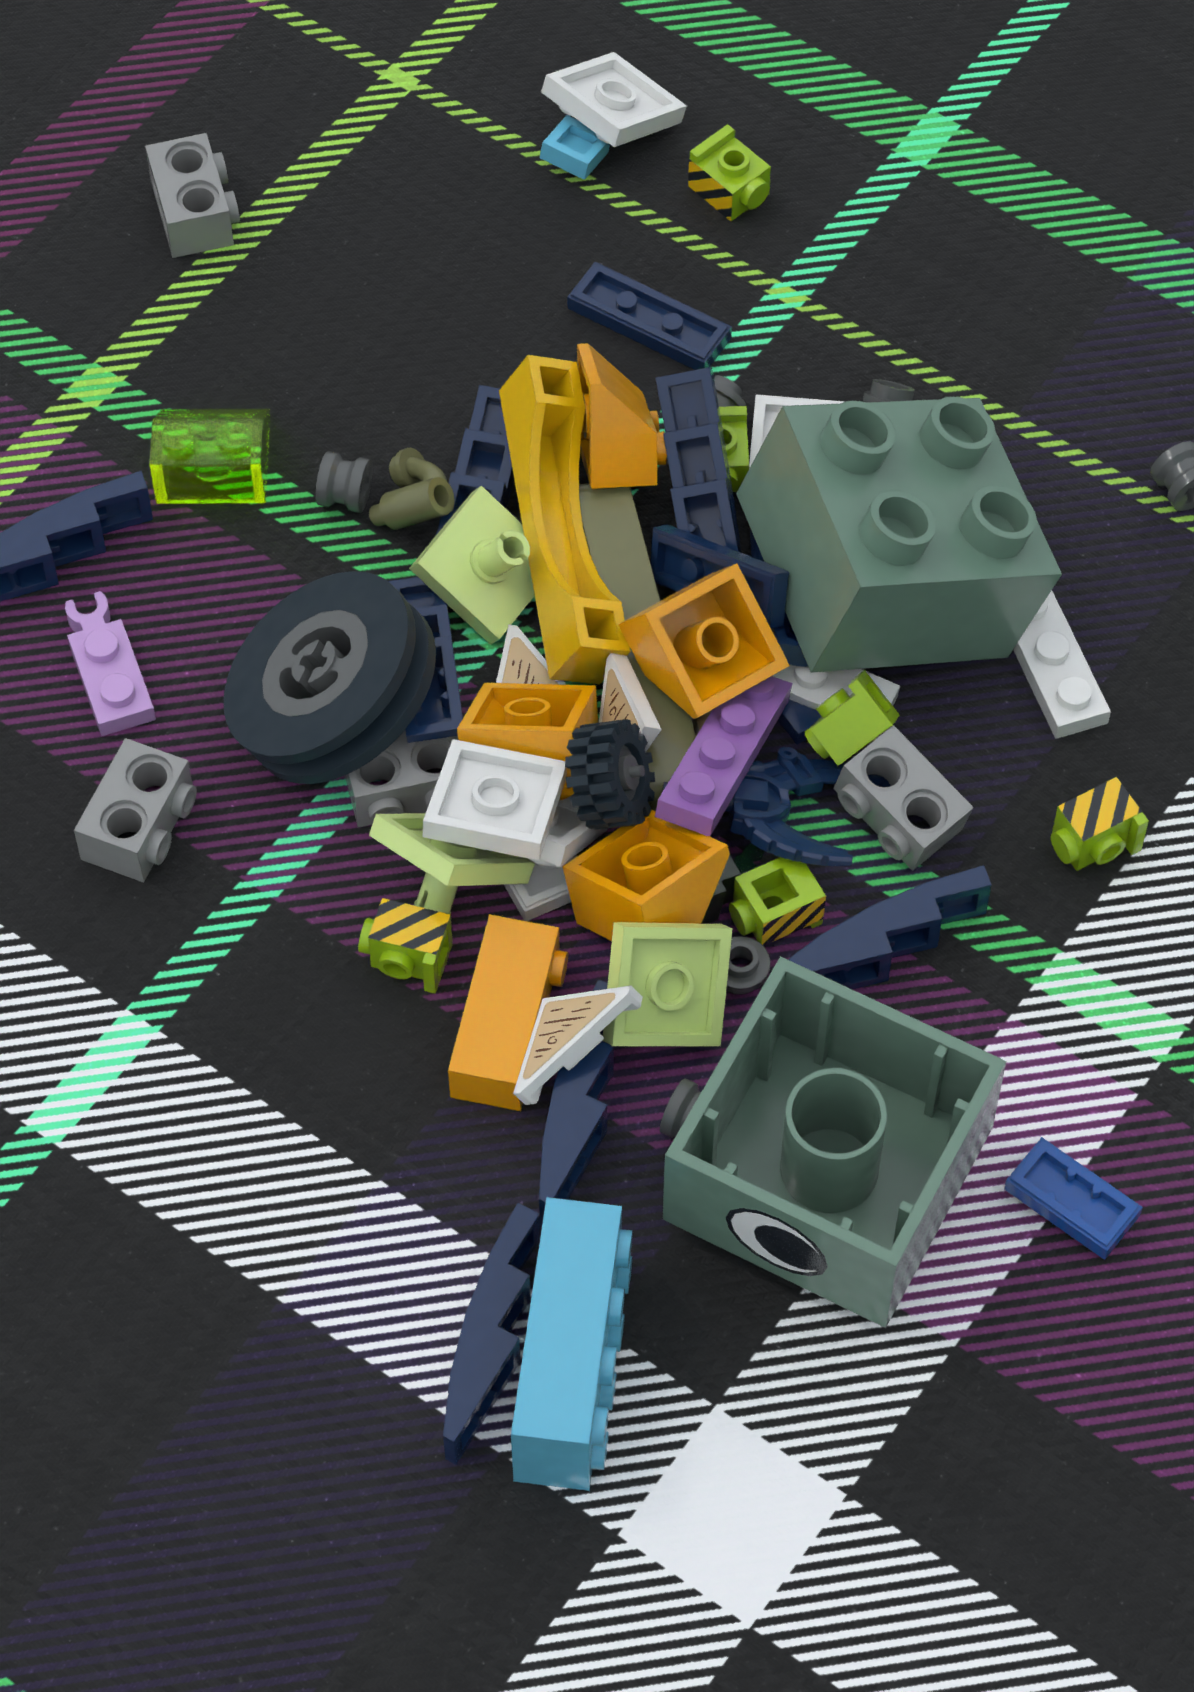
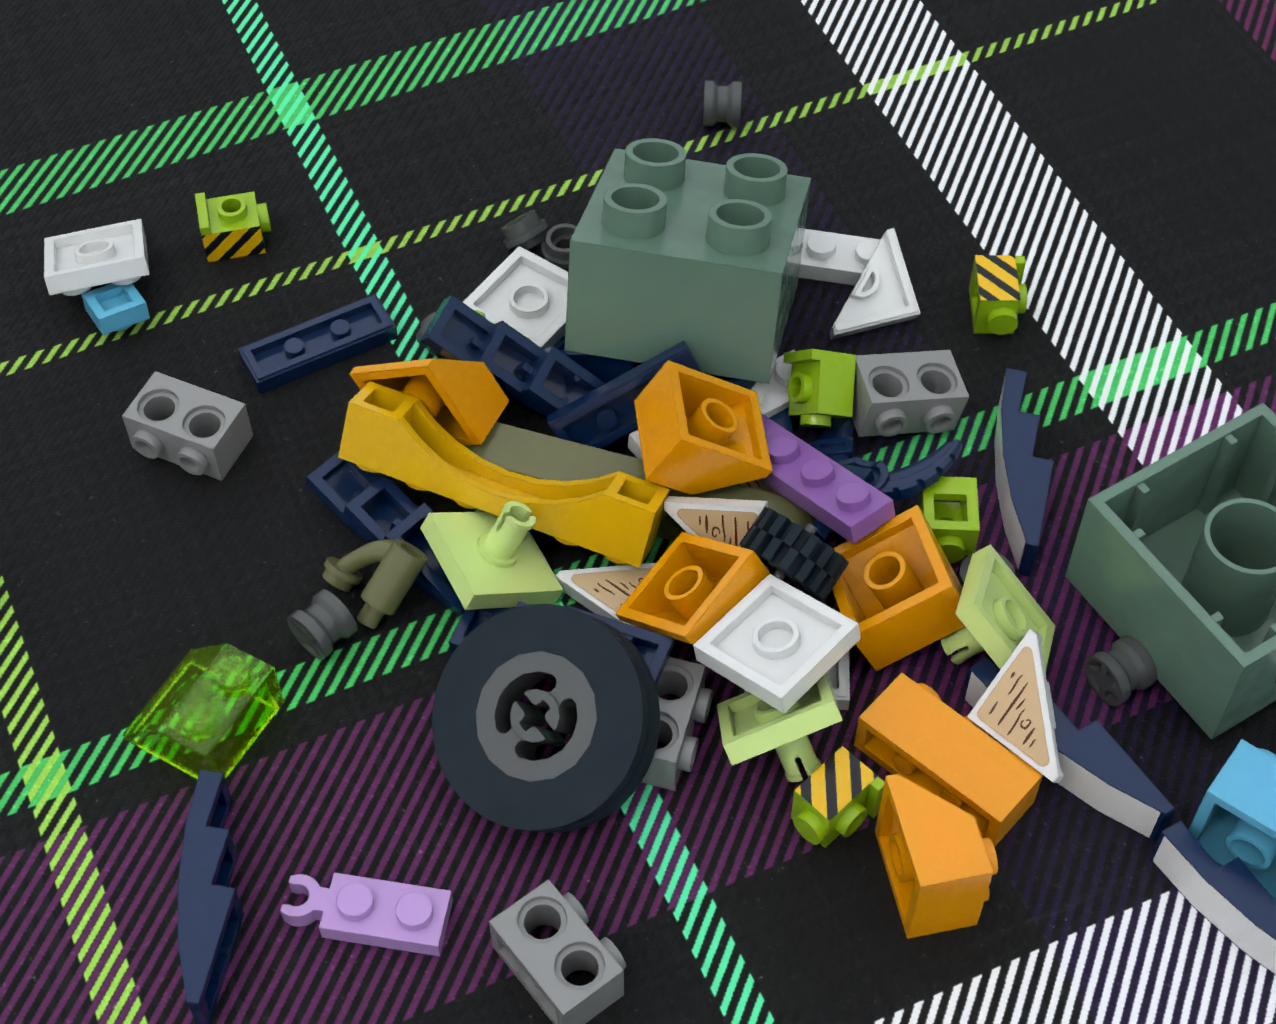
camera: 60 degrees left, 5 degrees down
(370, 1031) = (932, 859): none -> light orange slope
(481, 274) = (187, 426): none -> light grey brick
(1028, 726) = (881, 293): none -> white tile

